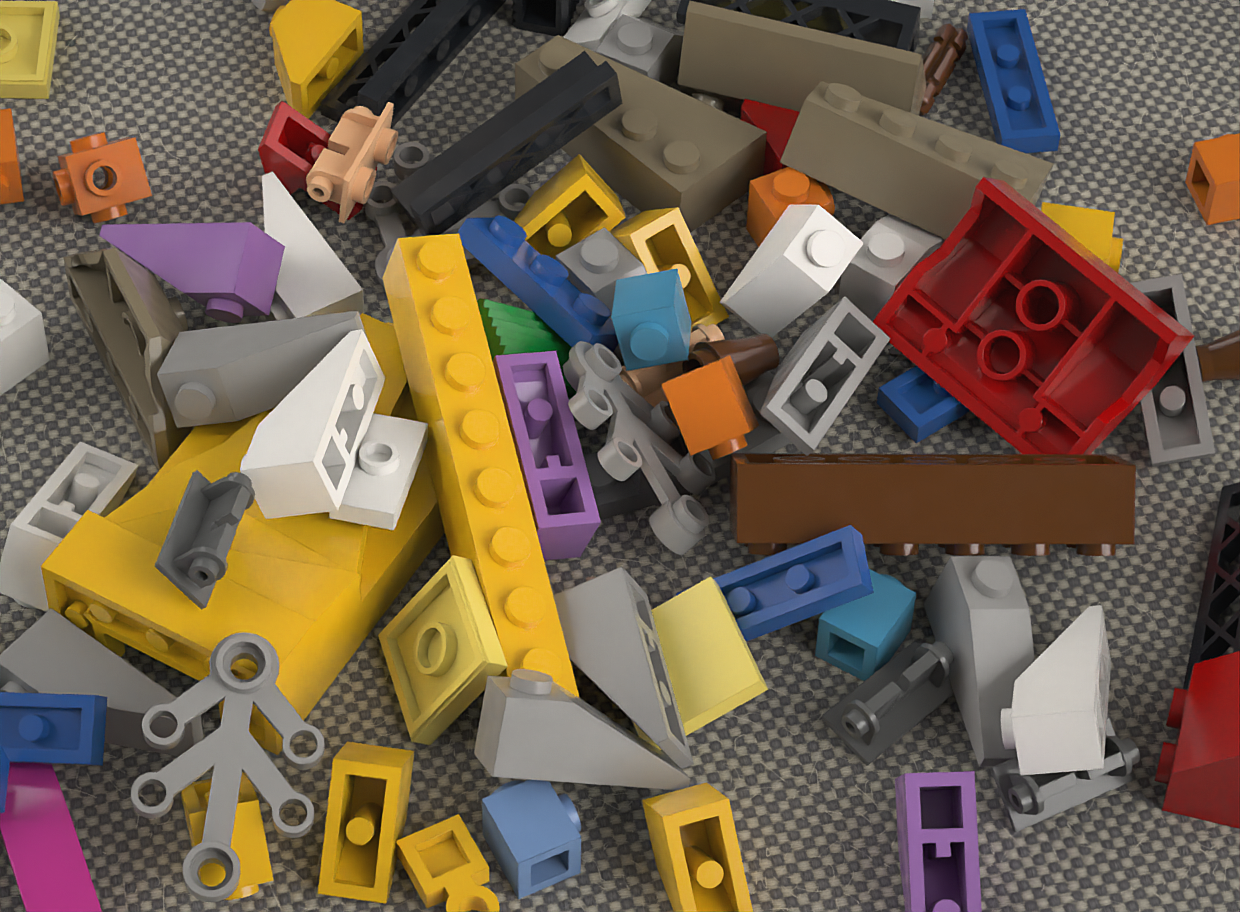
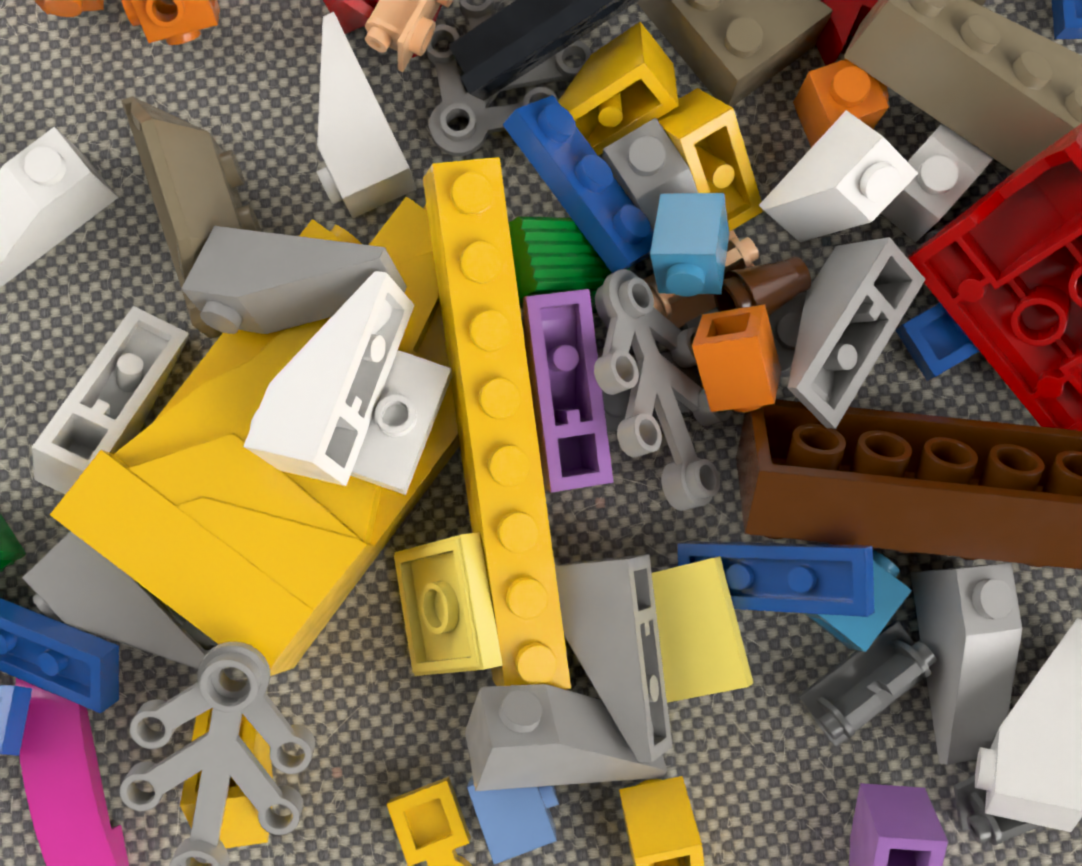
camera: 10 degrees right, 30 degrees up
(203, 533) = (201, 514): dark grey hinge -> none
(217, 264) = (256, 129): medium lavender slope -> none
(364, 821) = (361, 769): yellow slope -> none

